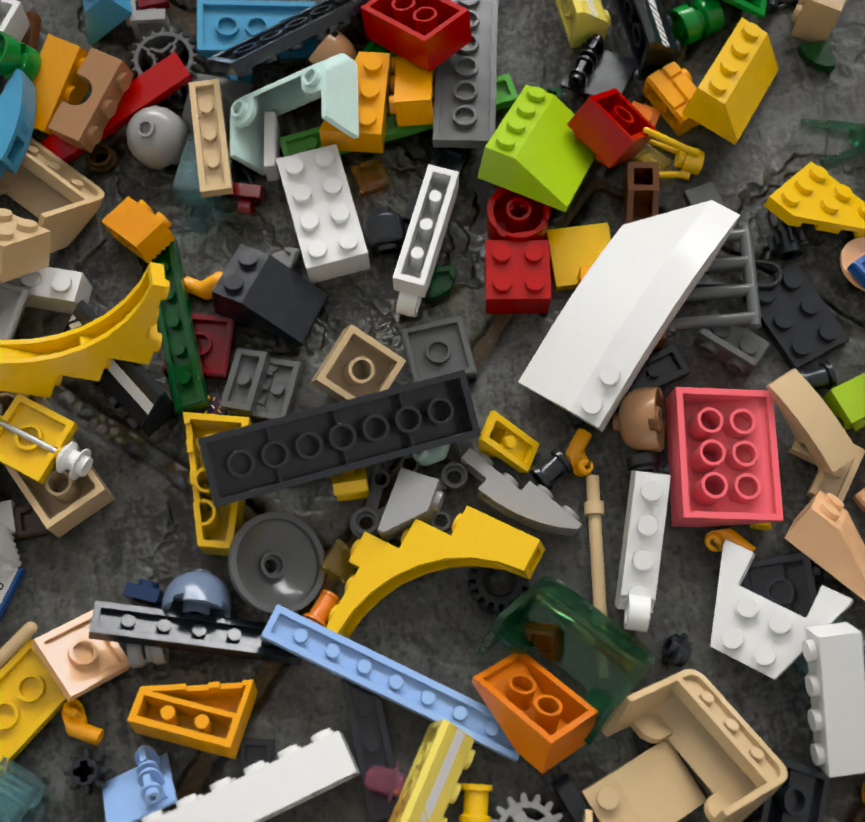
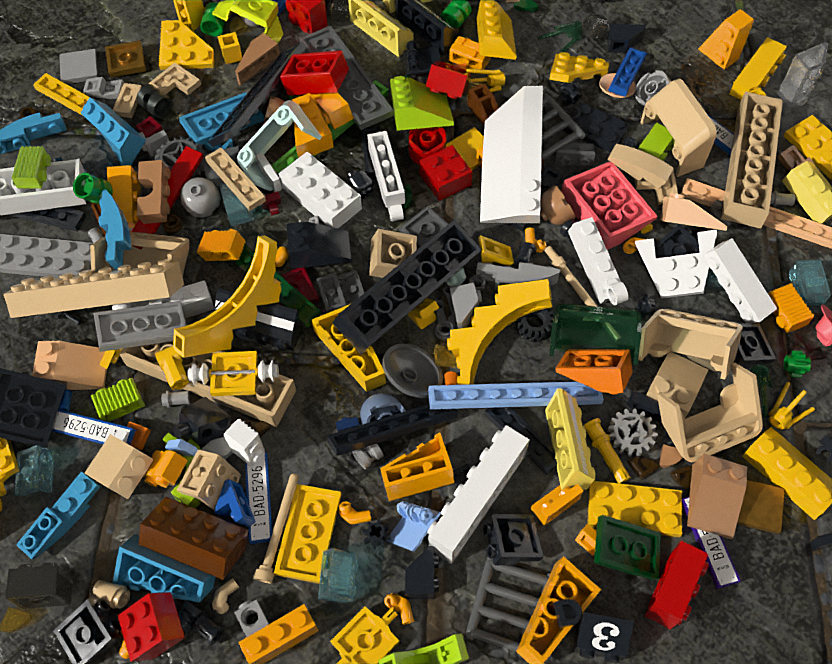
camera: 30 degrees left, 10 degrees down
(79, 662) = (333, 475): light nougat plate -> none
(370, 177) = (334, 163): clear orange tile -> none
(385, 780) = (546, 439): clear pink hinge -> none
(546, 638) = (578, 334): dark brown tile -> none

